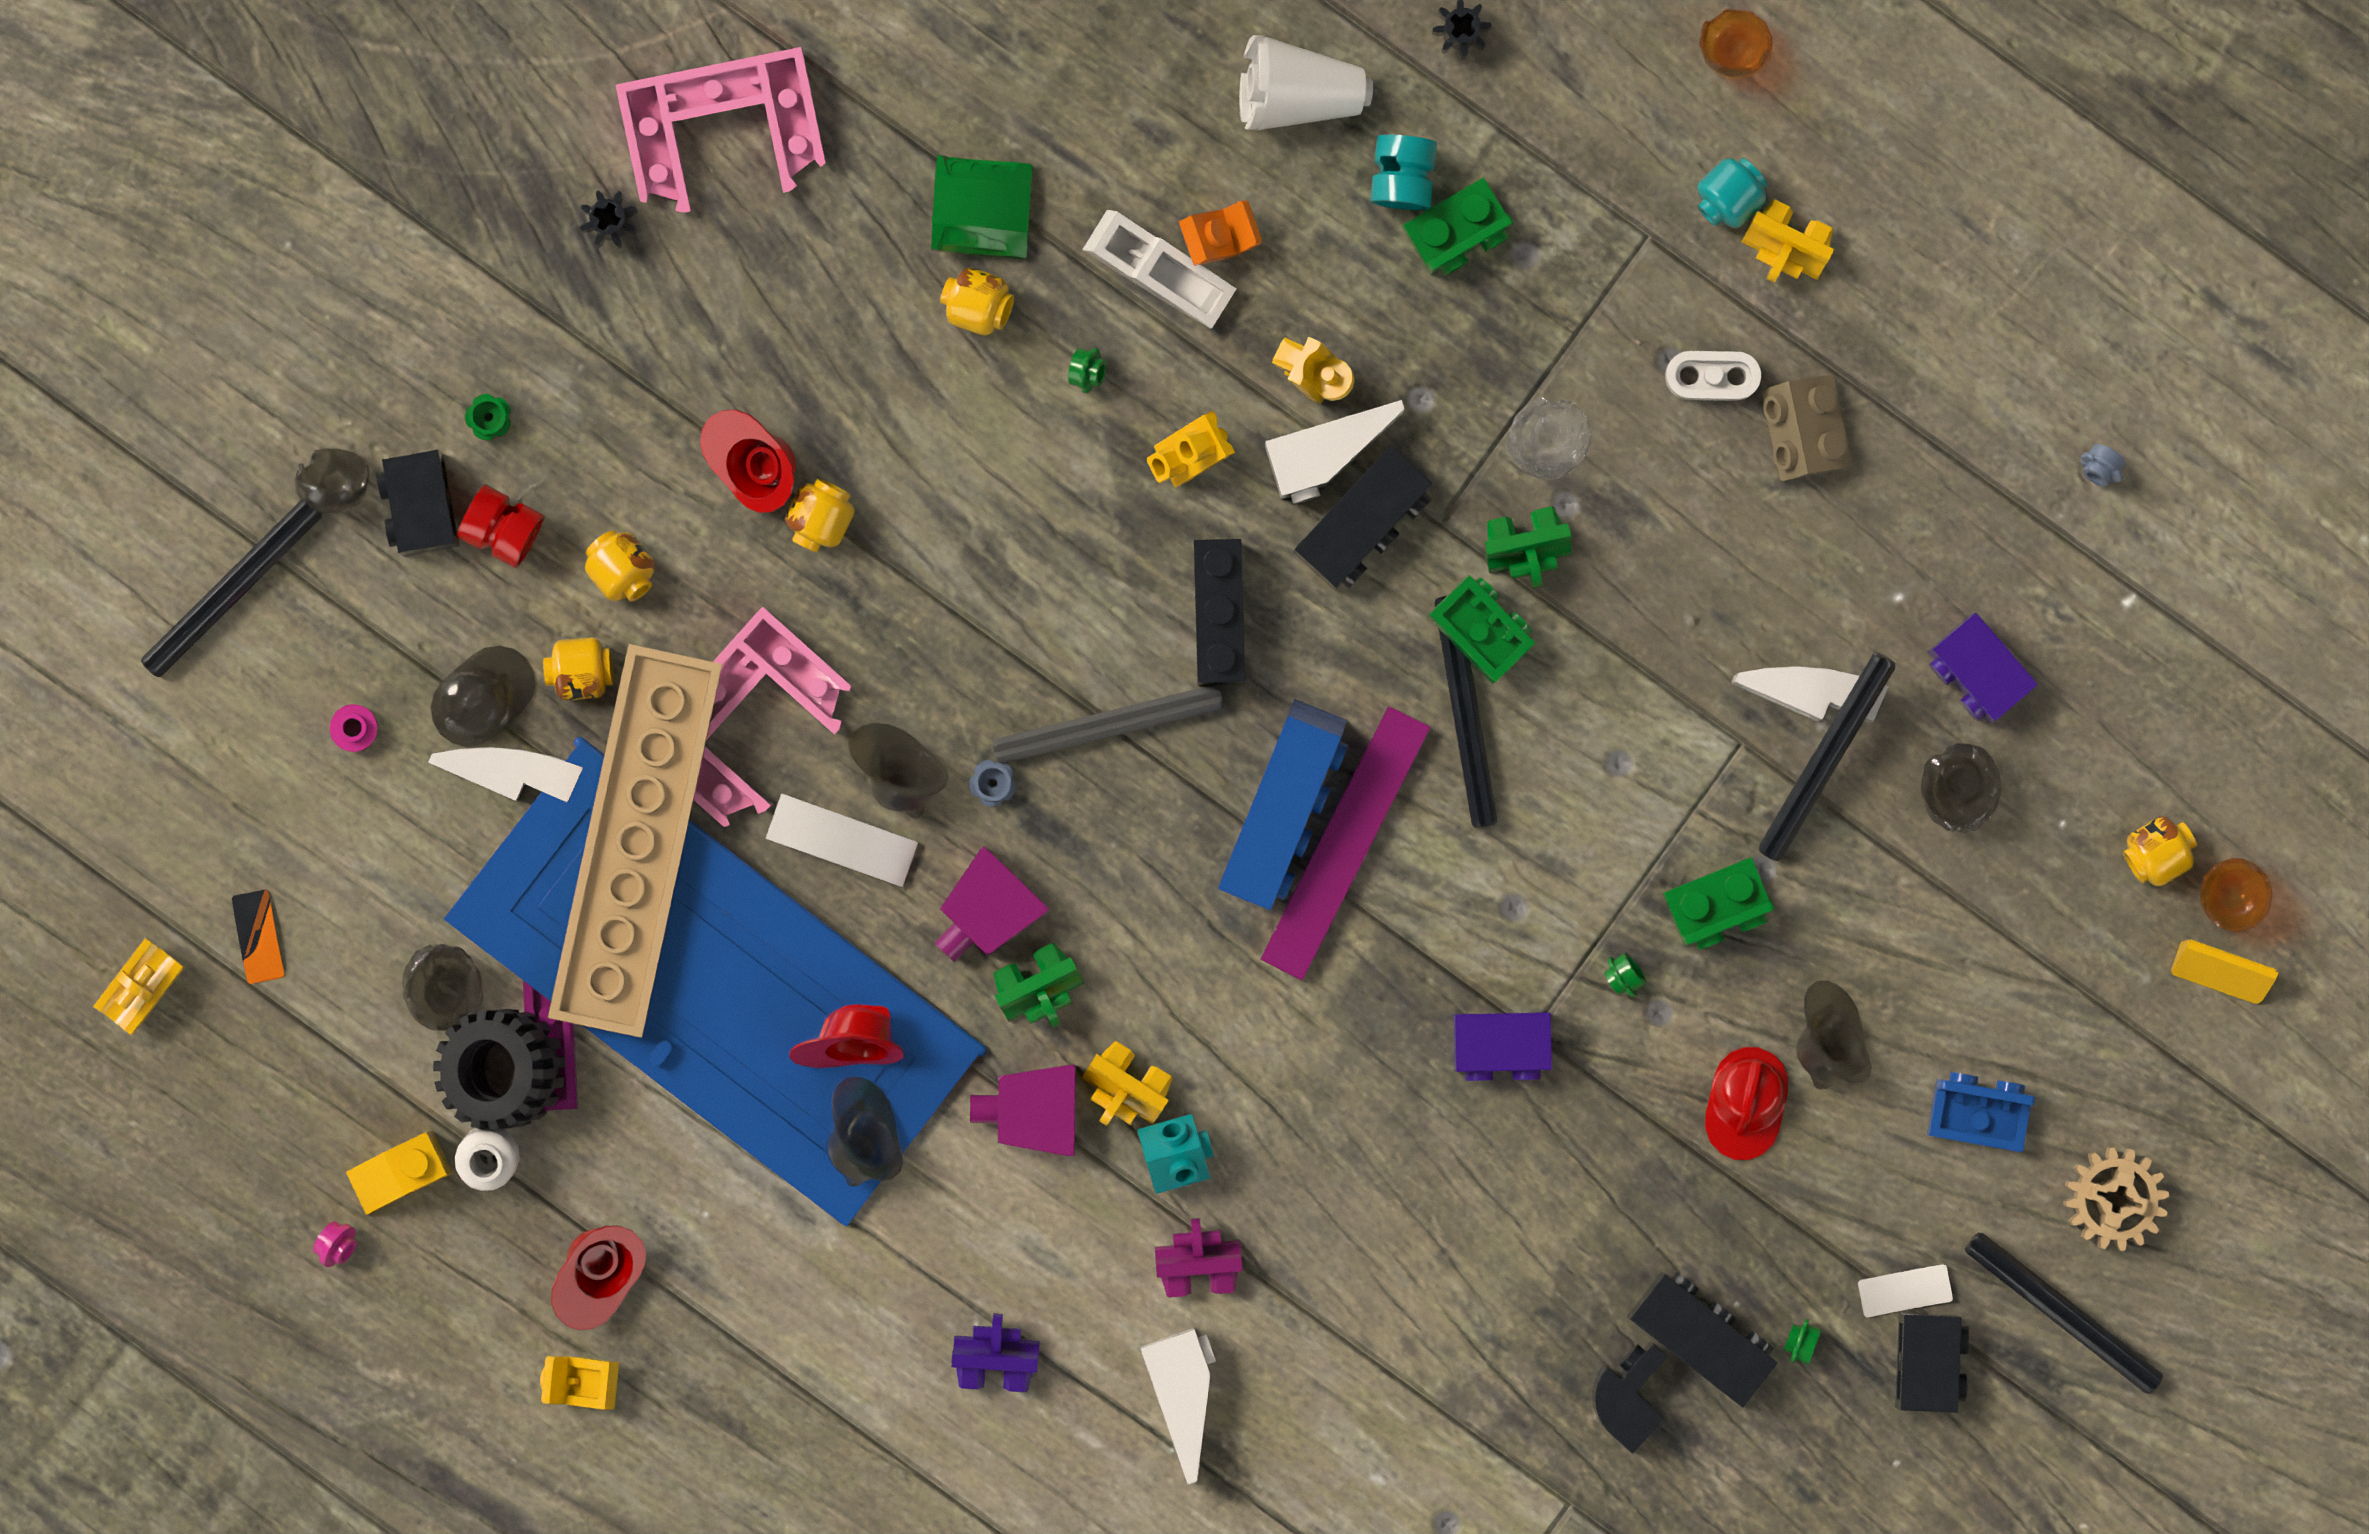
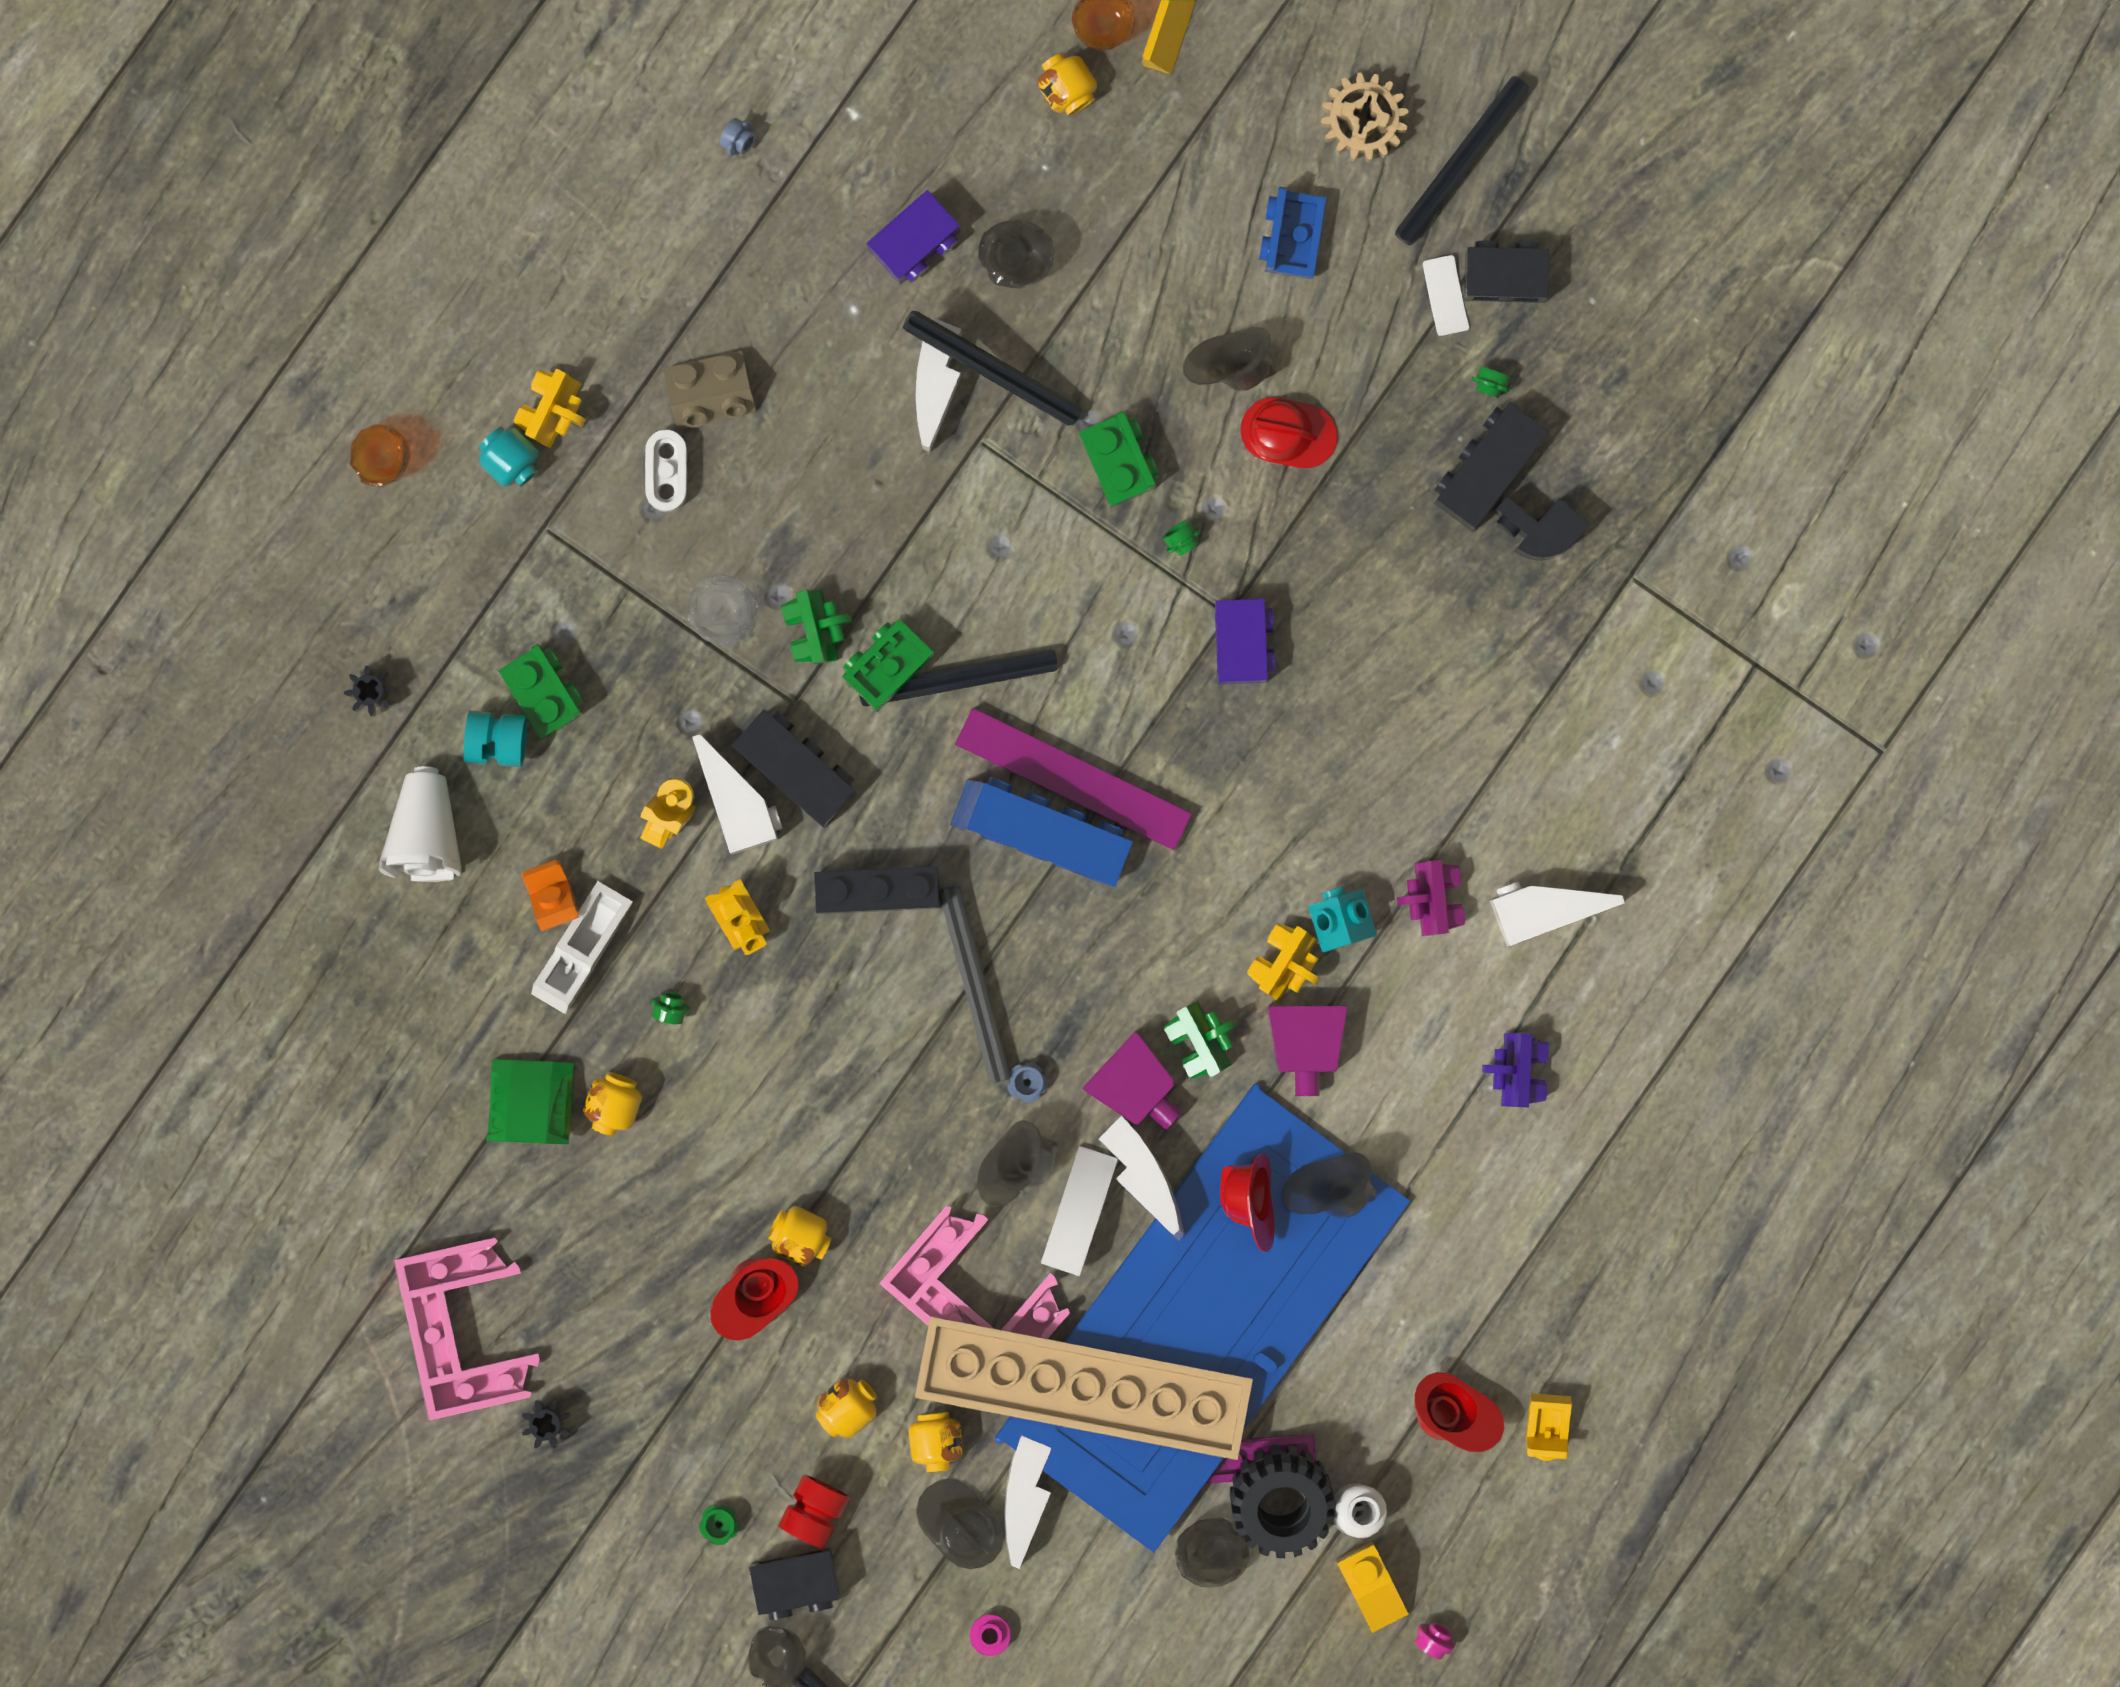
camera: 85 degrees left, 0 degrees up
(881, 916) = (1143, 1175): none -> white slope

